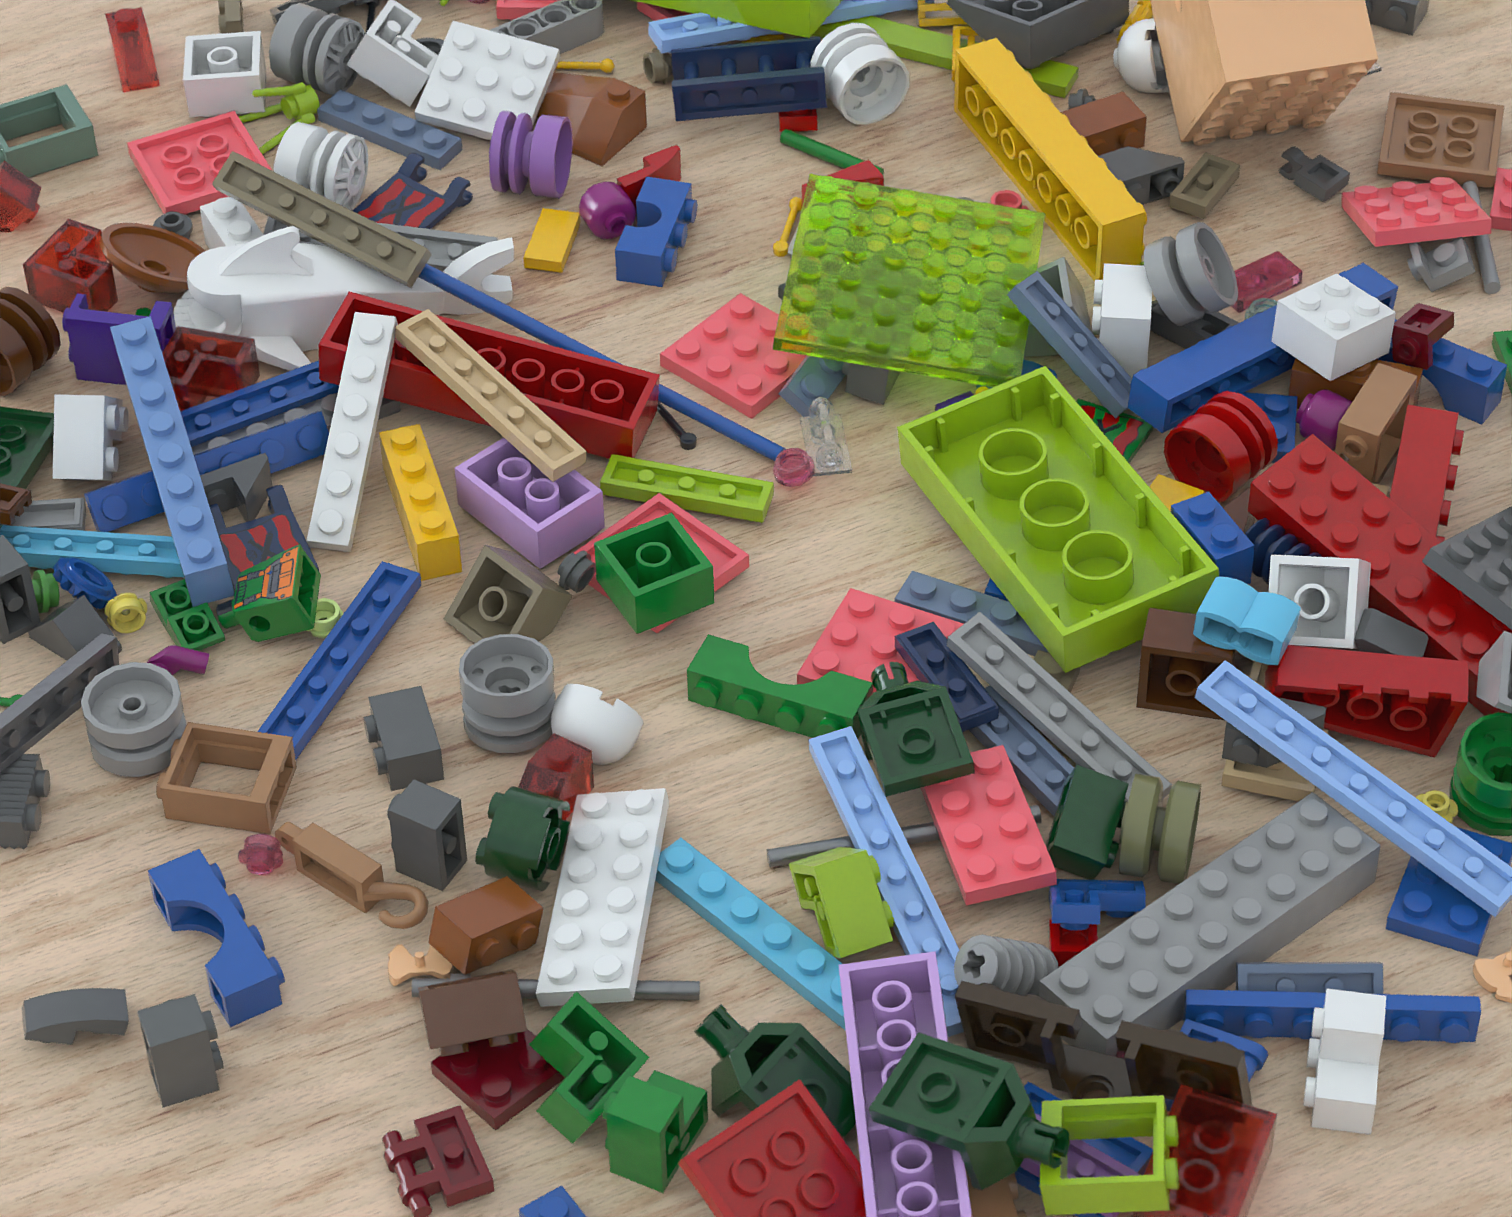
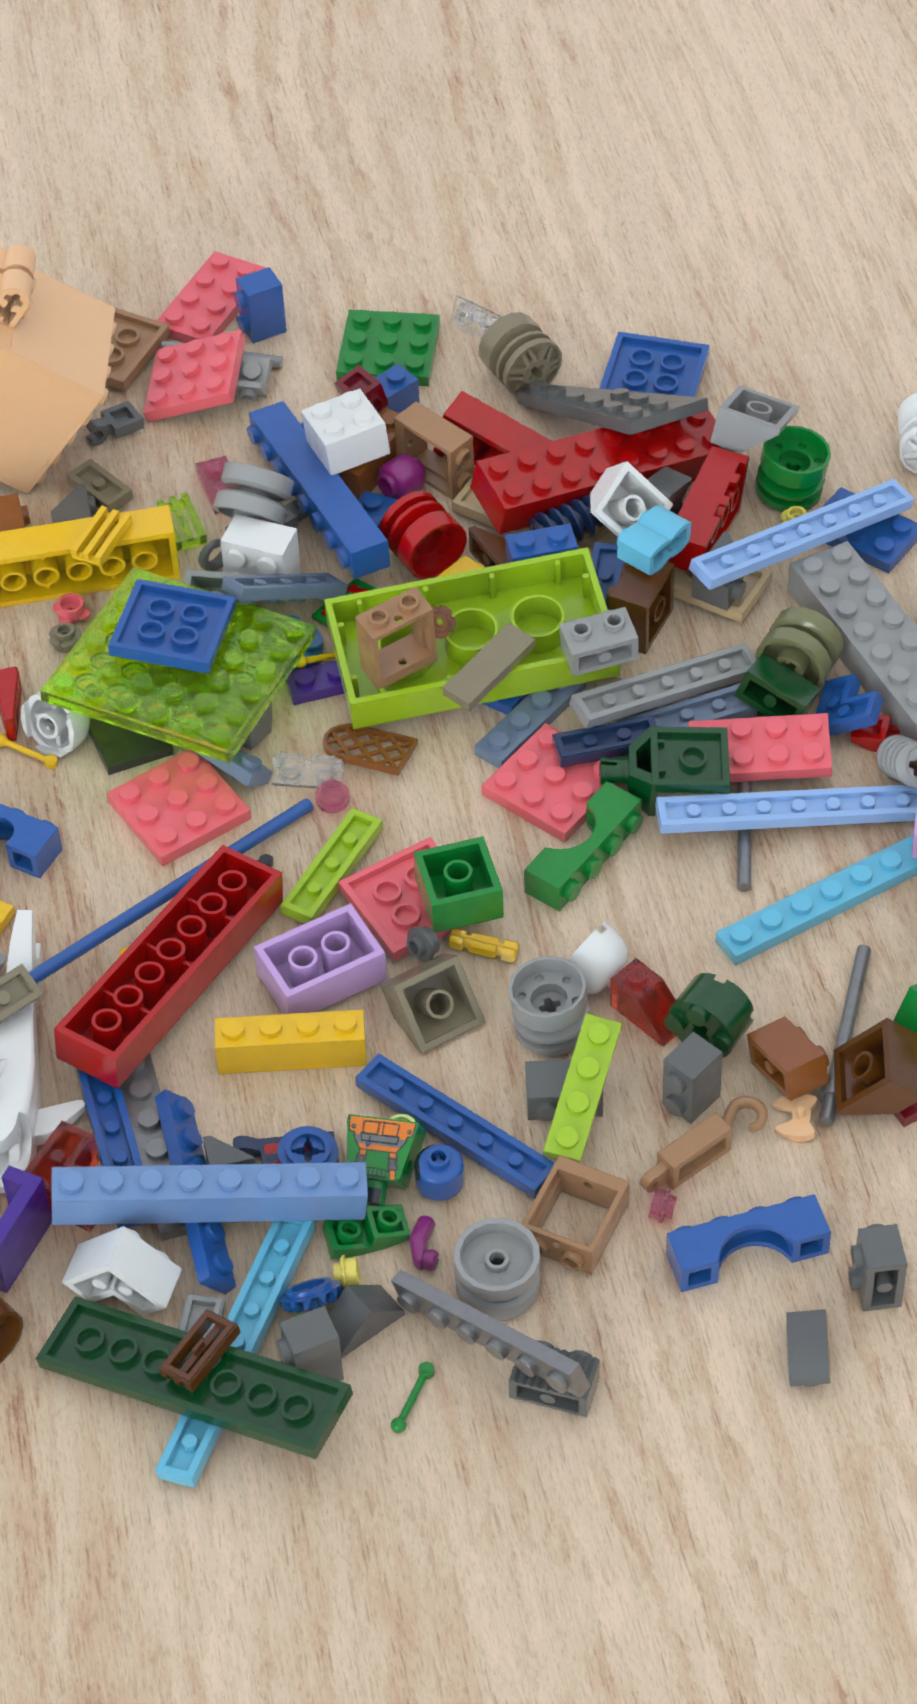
camera: 75 degrees left, 5 degrees up
(255, 539) = (294, 1143): none -> blue gear
(262, 651) = (439, 1172): none -> blue head
(352, 432) = (211, 1061): white plate -> none
(383, 736) = (582, 1088): none -> lime plate
(491, 395) = (226, 948): tan plate -> none
(603, 897) = (780, 982): white plate -> none
(609, 640) = (484, 945): none -> yellow axle
(845, 899) = (812, 835): lime brick -> none
(873, 516) = (358, 760): none -> dark orange window
(939, 246) = (172, 626): none -> blue plate
(987, 522) = (489, 667): none -> dark tan tile
(994, 446) = (415, 649): none -> medium nougat window
(1037, 461) = (448, 622): none -> plate
(1052, 602) = (598, 641): none -> light grey brick
(1065, 167) = (95, 534): none -> yellow tile

